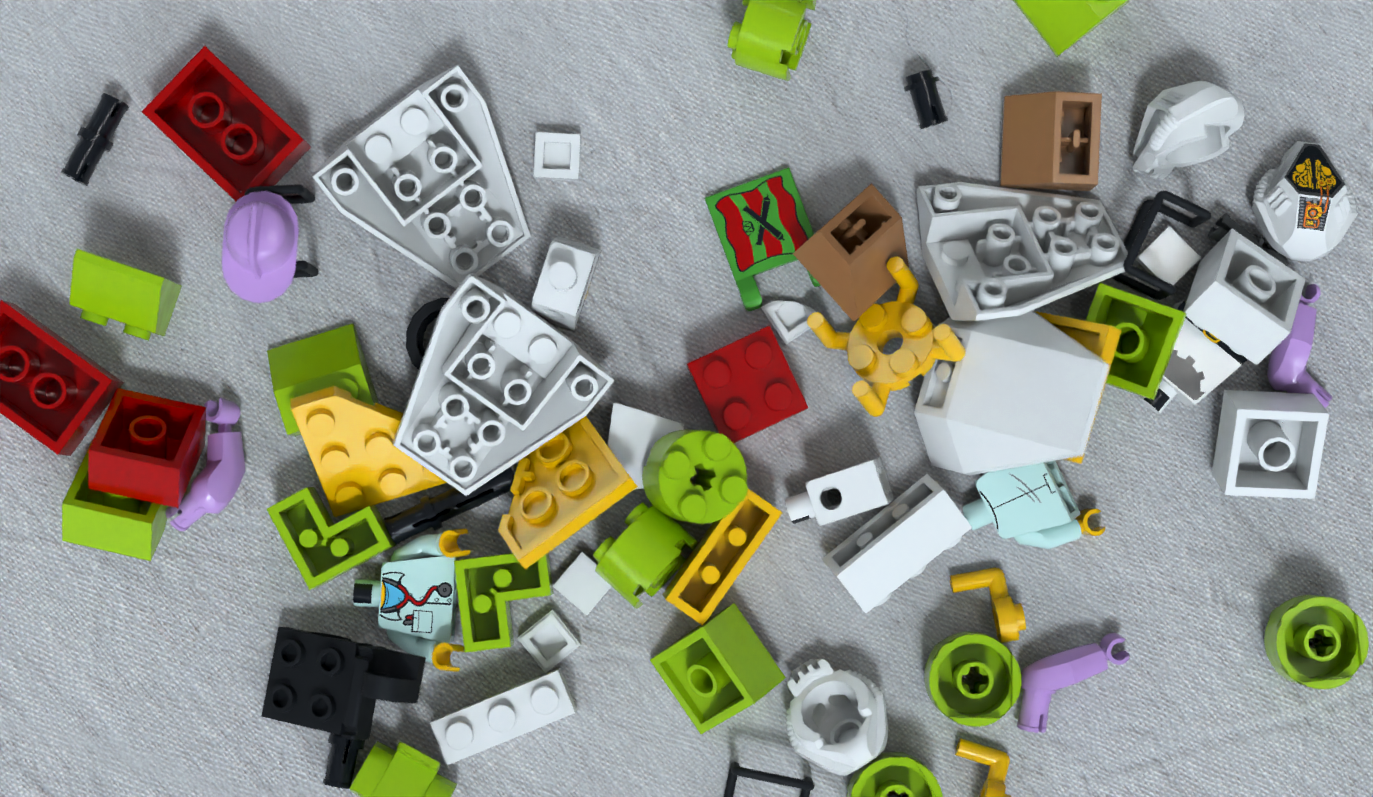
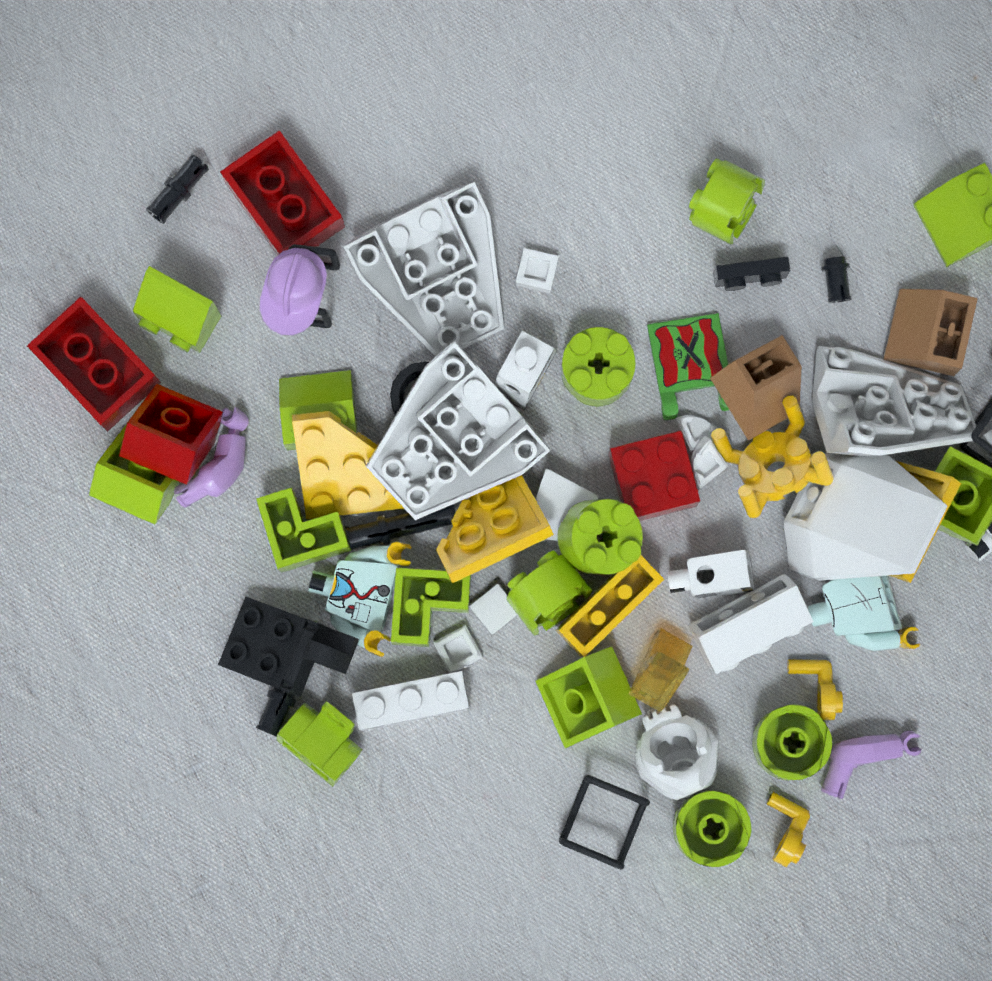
camera: 15 degrees right, 5 degrees down
(632, 248) = (612, 351): none -> lime brick
(799, 620) = (661, 670): none -> clear yellow slope
(807, 356) = (706, 462): none -> white tile
(839, 106) = (737, 275): none -> black plate

